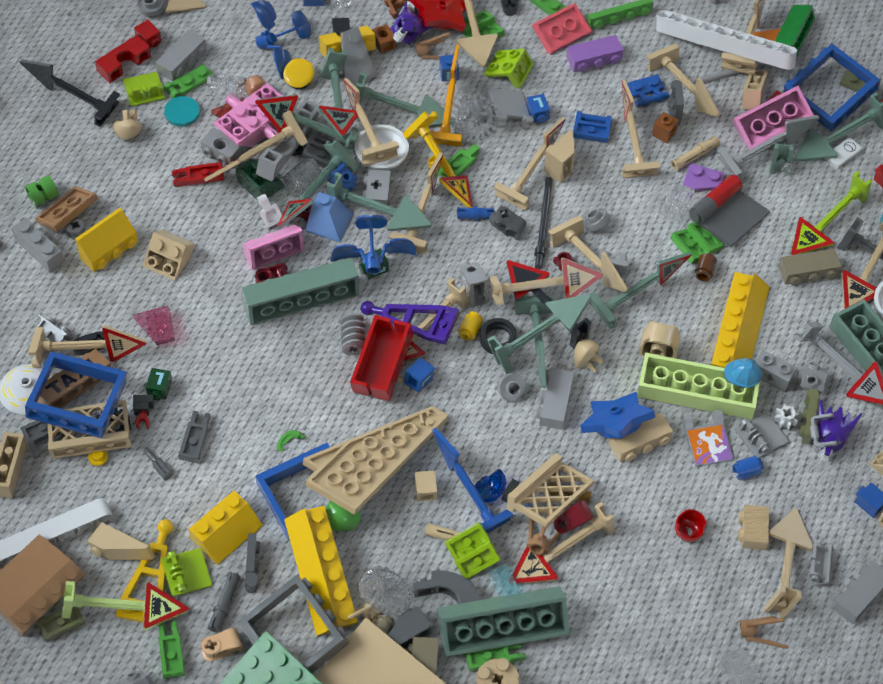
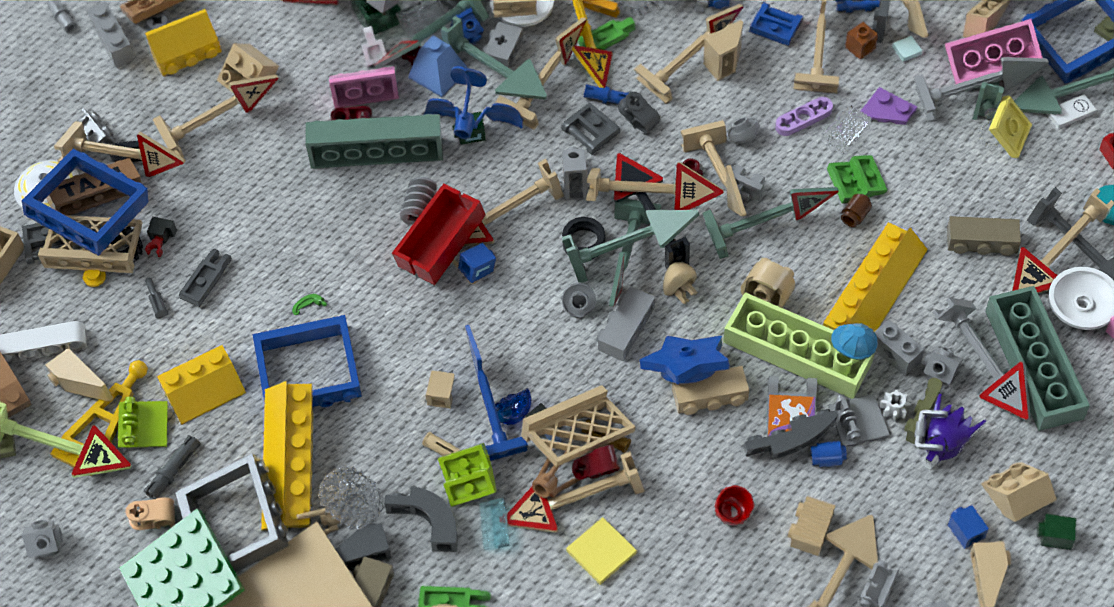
camera: 20 degrees right, 0 degrees up
(157, 324) = (208, 146): clear pink wing -> none
(159, 383) = (186, 210): dark green brick -> none
(171, 652) = (94, 508): bright green hinge -> none
(178, 275) = (246, 92): none -> tan piece
(252, 565) = (216, 431): dark grey hinge -> none
(340, 518) = (333, 398): bright green helmet -> none
(363, 465) = (369, 349): tan wing -> none
(385, 623) = (338, 534): dark tan brick -> none
(440, 329) = (515, 215): dark purple plate -> none
(470, 326) = (555, 220): yellow brick -> none
(474, 238) = (595, 123): none -> dark grey plate
(503, 621) = (472, 563): sand green brick -> none
(540, 250) = (667, 151): black bar -> none
(597, 586) = (601, 550): none -> light yellow tile
(640, 192) = (809, 109): none -> lavender beam
(700, 150) = (898, 73): tan pin -> none
(701, 127) = (907, 48): none -> light aqua tile
(721, 456) = (801, 433): none -> dark grey slope
(728, 211) = (905, 151): dark grey door -> none
(803, 175) = (1010, 126): none -> light yellow tile
(809, 237) = (998, 202): lime piece -> none

